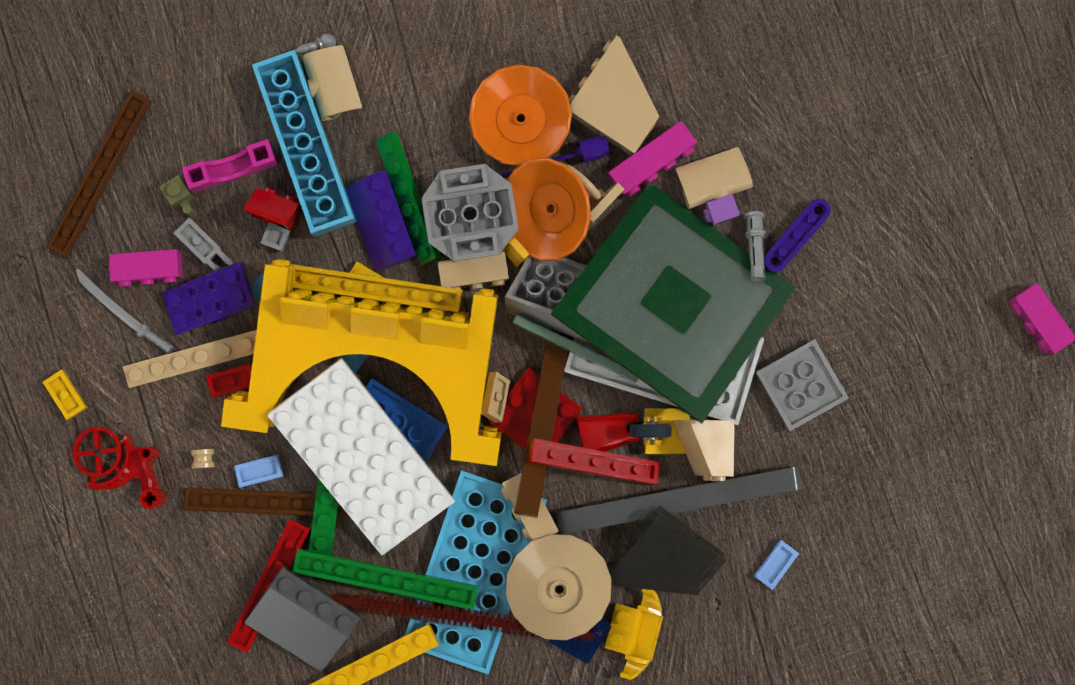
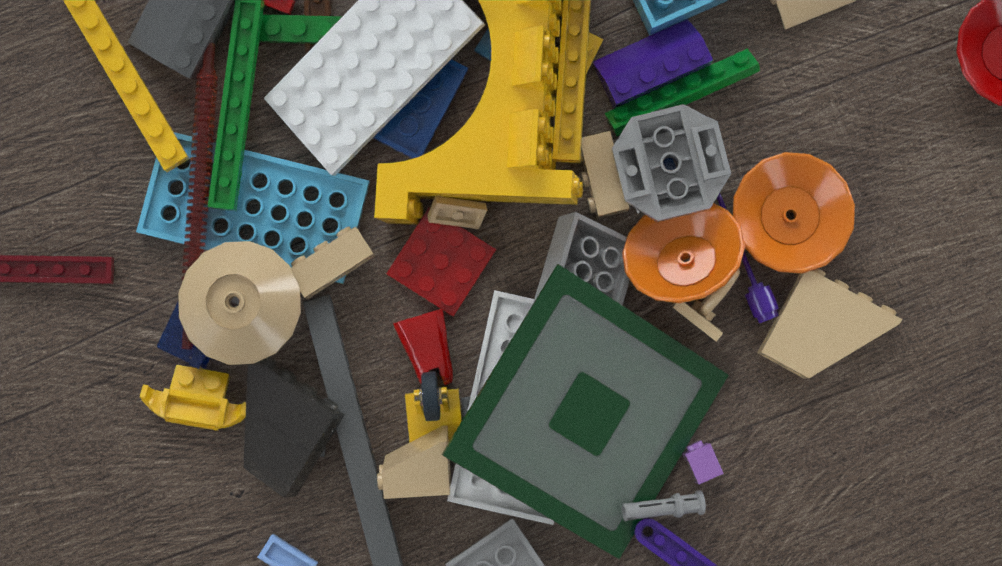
camera: 85 degrees right, 0 degrees up
(516, 252) = (630, 222): yellow tile -> none
(541, 428) = (424, 268): reddish brown tile -> none
(573, 347) = (524, 293): sand green tile -> none
(593, 462) = (389, 332): red plate -> none
(652, 159) = (757, 376): dark pink brick -> none
(714, 177) = (741, 450): tan panel -> none

